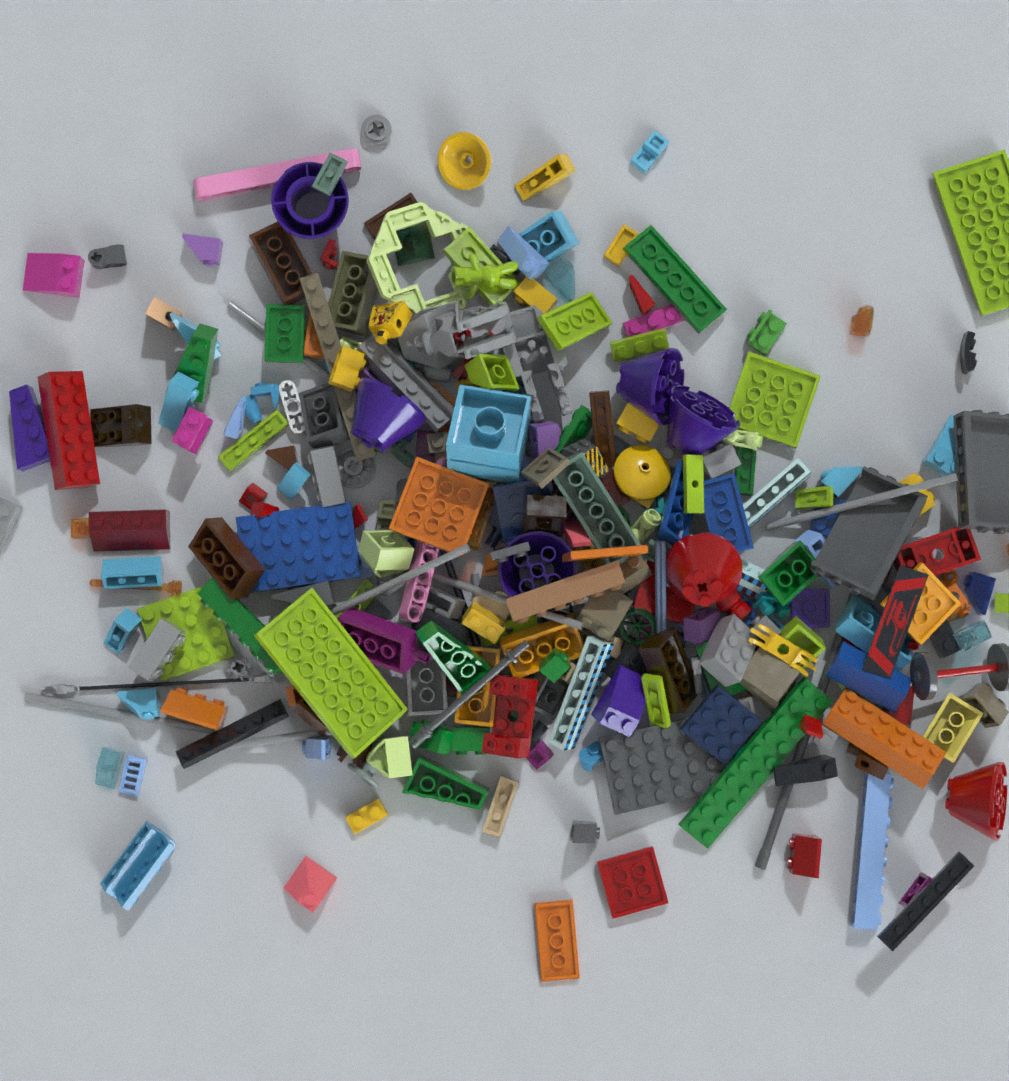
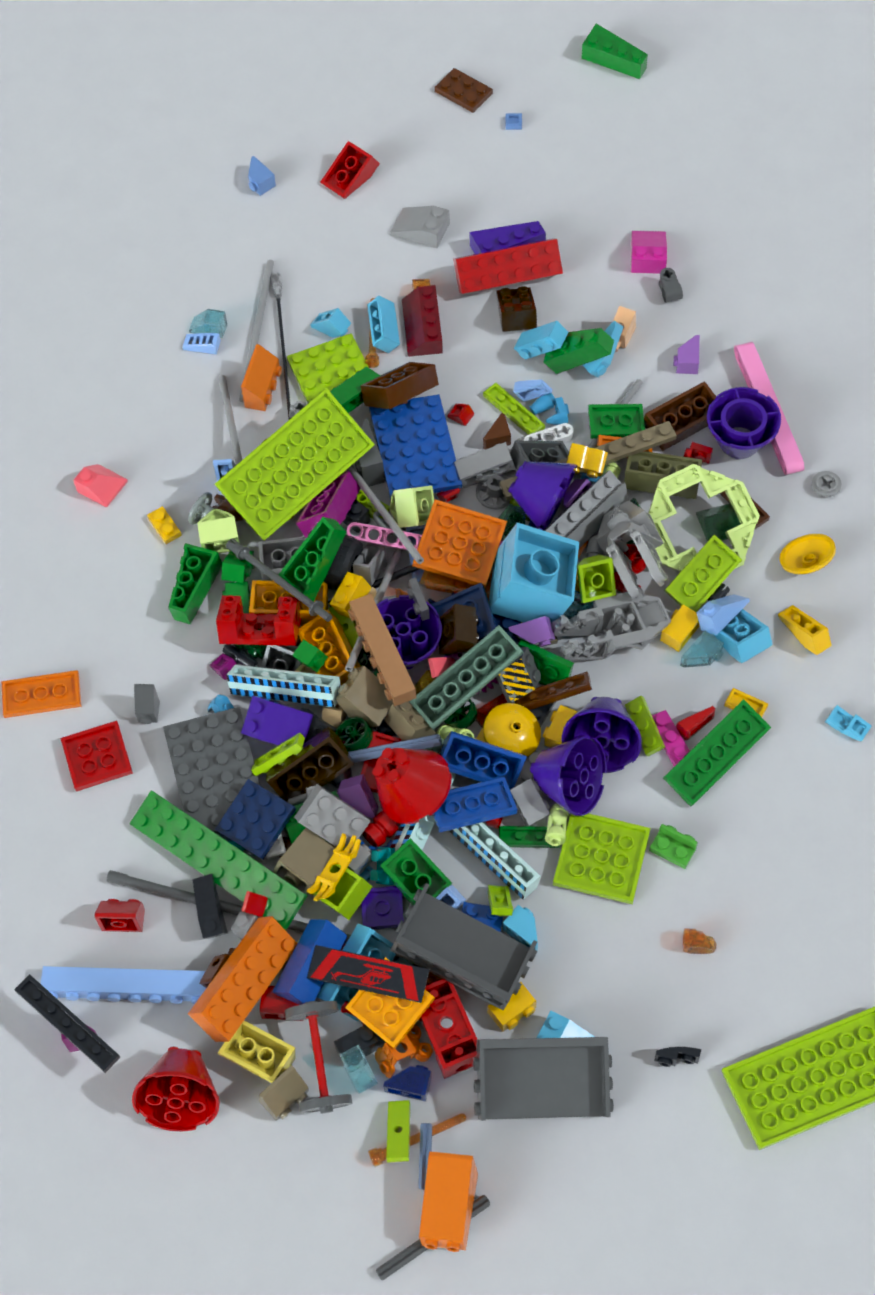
camera: 90 degrees right, 25 degrees down
(138, 864) = (120, 350): dark azure brick -> none
(142, 702) = (267, 338): medium azure slope -> none
(158, 650) = (313, 341): light grey brick -> none
(192, 430) = (517, 354): dark pink panel -> none
(232, 734) = (236, 406): black plate -> none
(262, 509) = (448, 416): red slope -> none
(293, 481) = (477, 437): medium azure slope -> none
(329, 174) = (770, 427): sand green plate -> none
(389, 320) = (635, 489): yellow torso -> none
(487, 276) = (694, 573): lime animal -> none
(500, 807) = (172, 633): tan plate -> none
(545, 467) = (504, 623): dark tan tile -> none
(574, 321) = (659, 656): lime plate -> none
(604, 553) = (422, 679): orange tile -> none
(693, 474) = (488, 769): lime tile -> none
(862, 501) = (499, 943): light grey piece -> none

